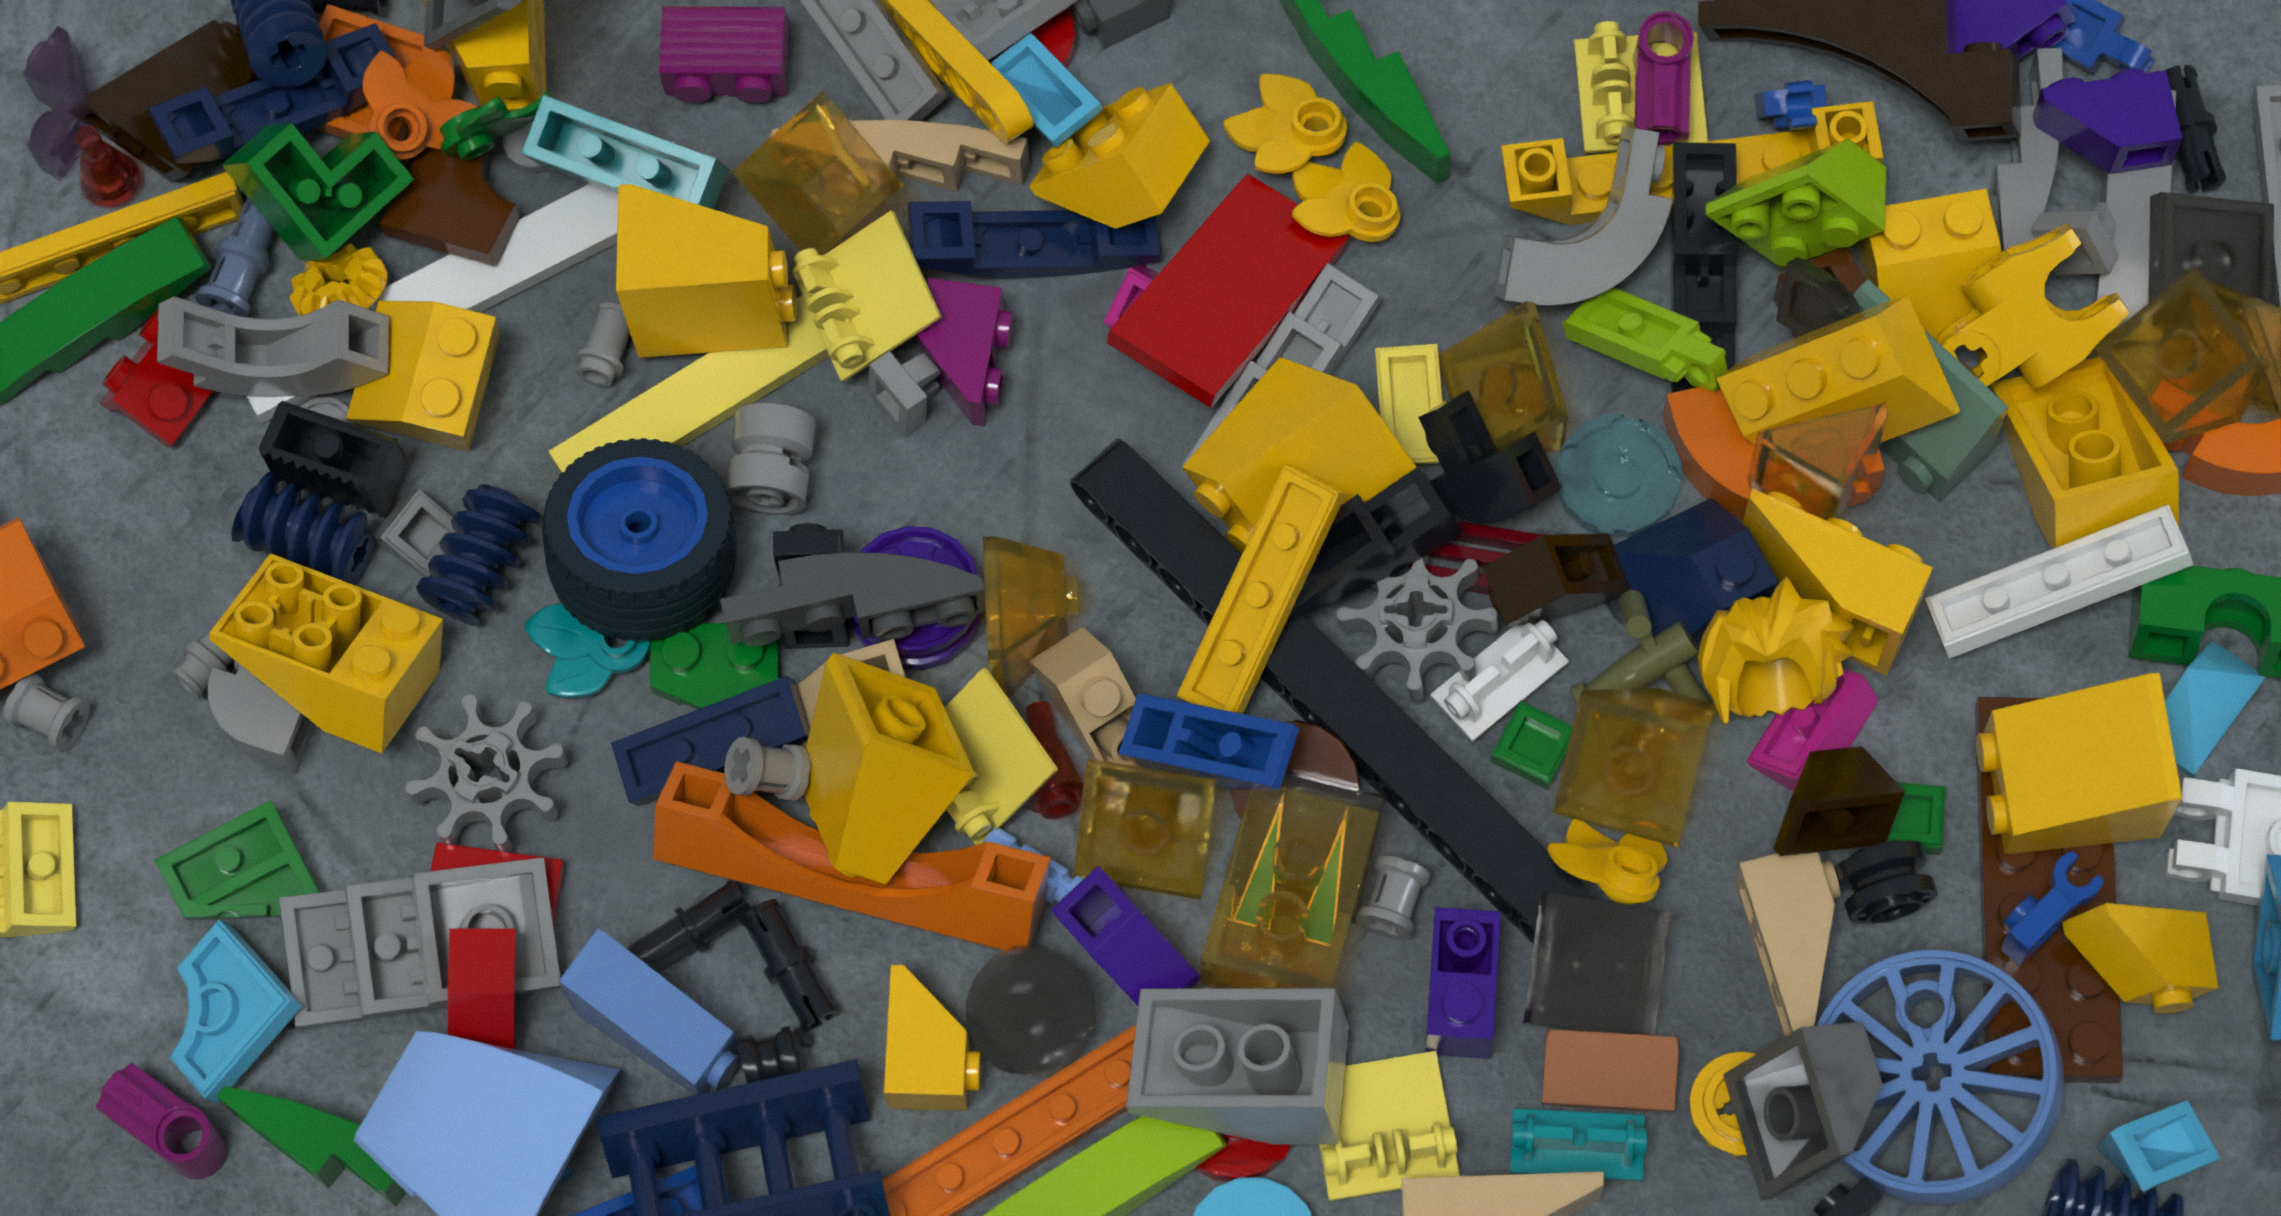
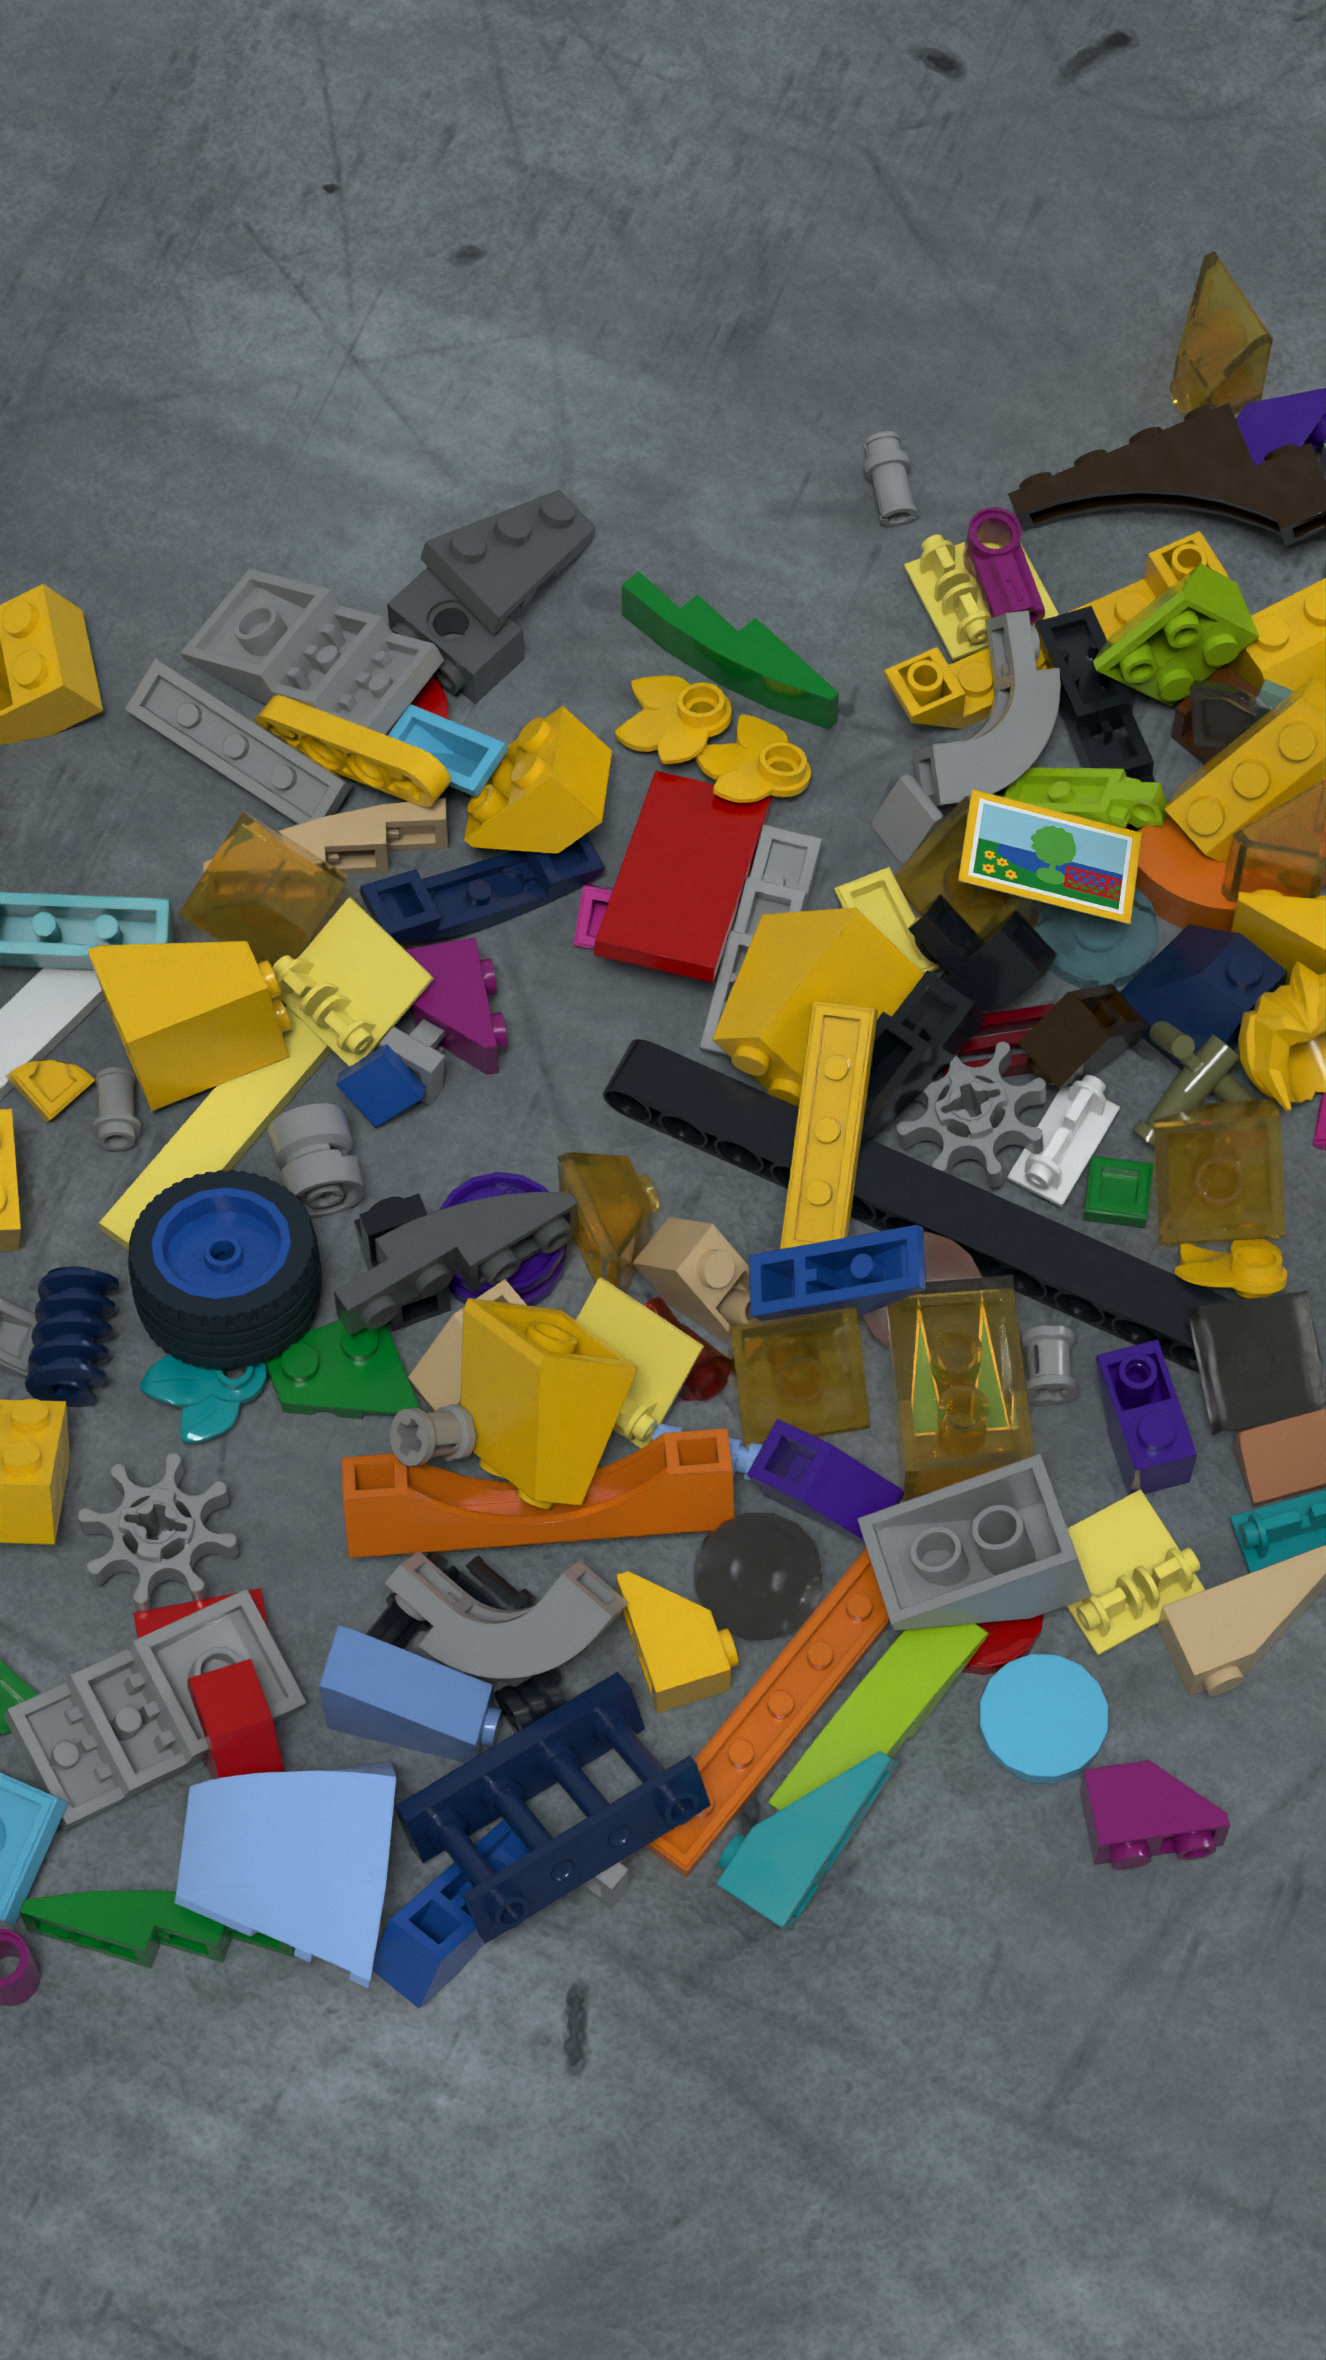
camera: 25 degrees left, 5 degrees down
(554, 300) = (49, 1085): none -> yellow tile
(704, 736) = (359, 1427): dark blue plate -> none
(724, 52) = (125, 811): magenta brick -> none
(756, 991) = (505, 1641): none -> light grey arch
(859, 405) = (381, 1085): none -> blue tile
(1471, 300) = (906, 818): none -> light grey slope
(1586, 389) = (1050, 856): none -> sticker
(1791, 105) = (1125, 560): blue plate -> none

